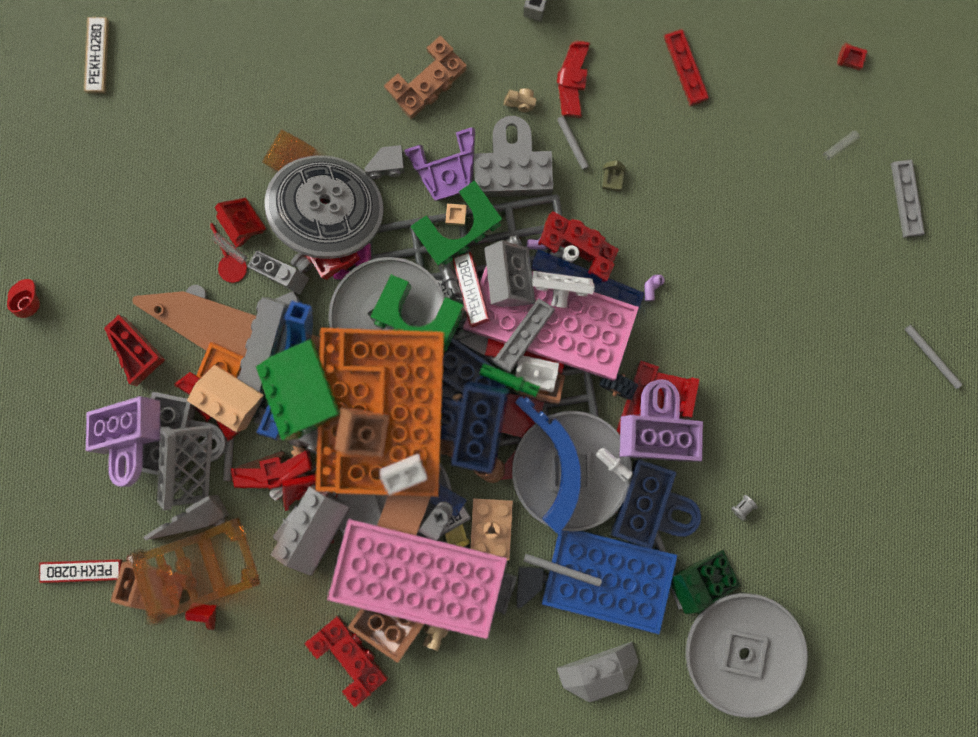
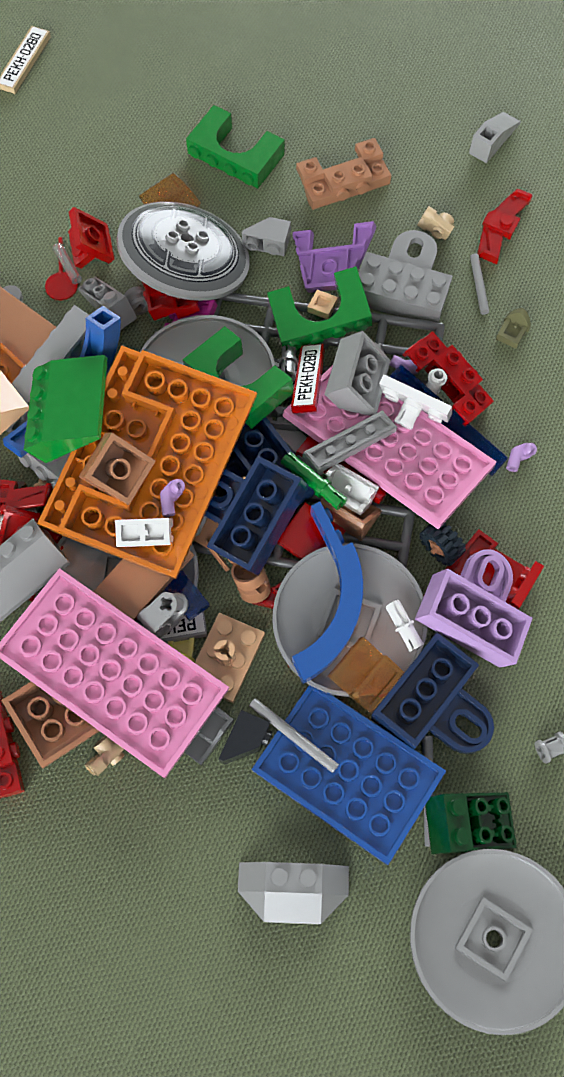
camera: 25 degrees right, 15 degrees down
(343, 99) = (249, 166): none -> green arch
(409, 439) = (170, 495): none -> lavender arm
(598, 509) = (366, 674): none -> clear orange slope

